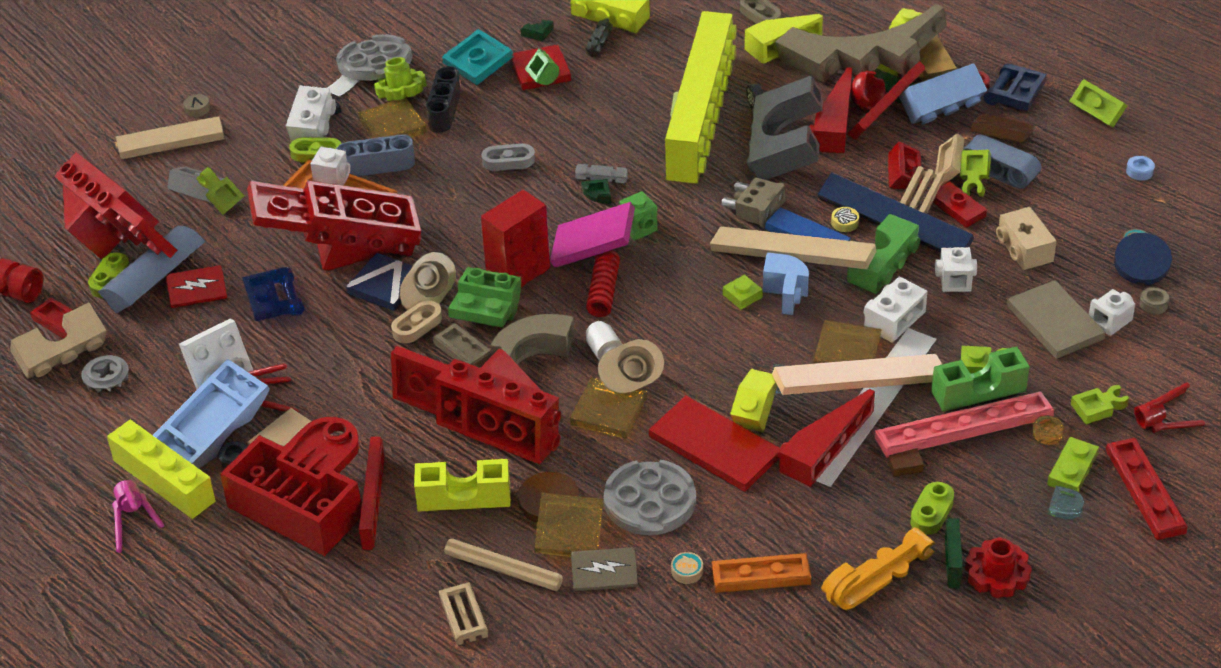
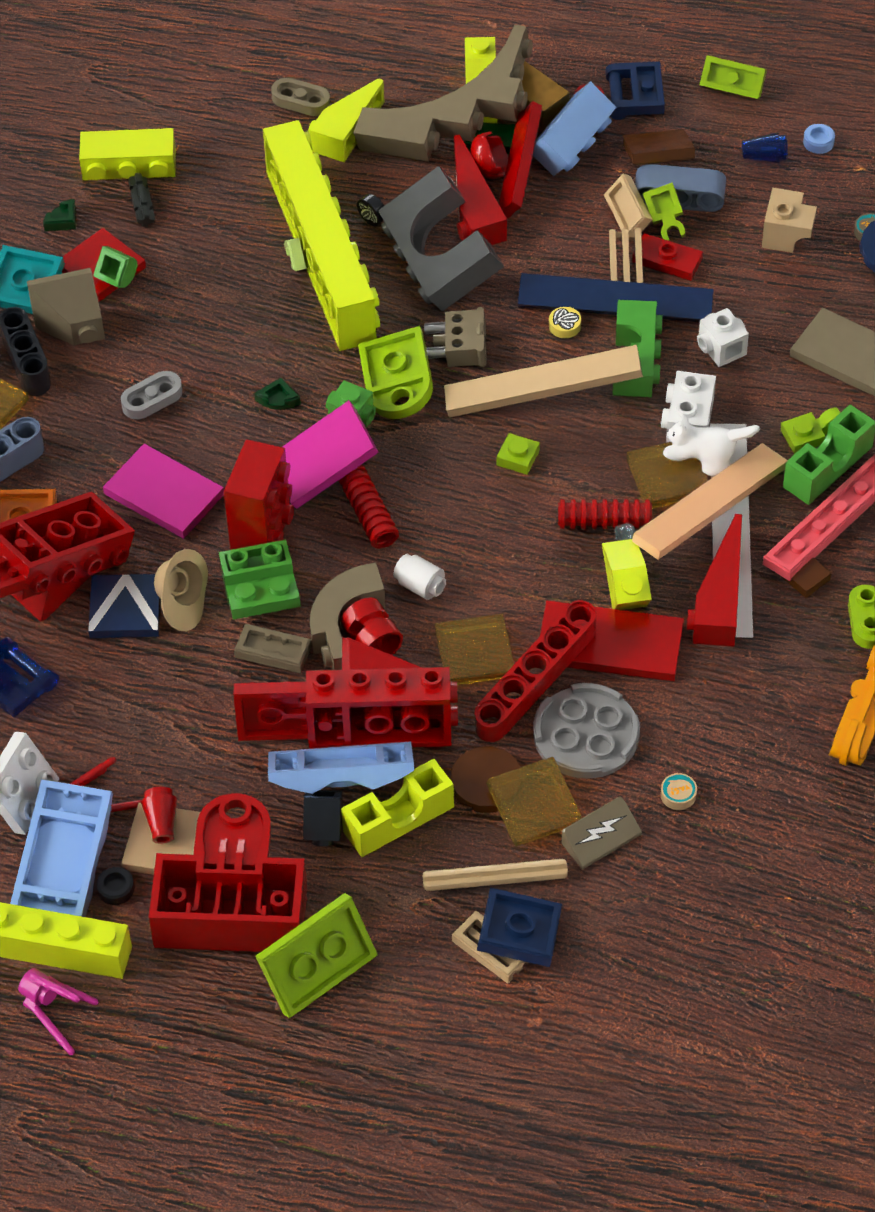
camera: 30 degrees left, 10 degrees up
(295, 417) = (160, 811): none -> red cone
(324, 556) = (316, 955): none -> lime tile
(372, 493) = (296, 847): red tile -> none
(400, 467) = (323, 817): none -> black brick
(416, 321) = (197, 642): tan plate -> none
(439, 438) = (340, 766): none -> light blue slope
(461, 217) = (163, 490): none -> dark pink tile
(490, 606) = (519, 927): none -> dark blue tile
(491, 79) = (67, 307): none -> dark tan slope
(540, 360) = (370, 625): none -> red wheel
(599, 172) = (268, 372): light grey axle -> none
(631, 366) = (476, 593): tan piece -> none
(636, 436) = (530, 685): none -> red beam
(693, 204) = (396, 369): none -> lime tile
(761, 573) = (752, 763): orange tile -> none
(767, 352) = (603, 513): none -> red piece
(786, 276) = (557, 416): light blue brick -> none
(790, 223) = (524, 353): blue tile -> none
(886, 335) = (710, 445): none -> white animal
(902, 165) = (582, 234): red slope -> none
(1026, 238) = (765, 270): tan brick -> none
(1066, 209) = (787, 220): none -> tan brick
(1092, 159) = (766, 148): none -> clear blue cone

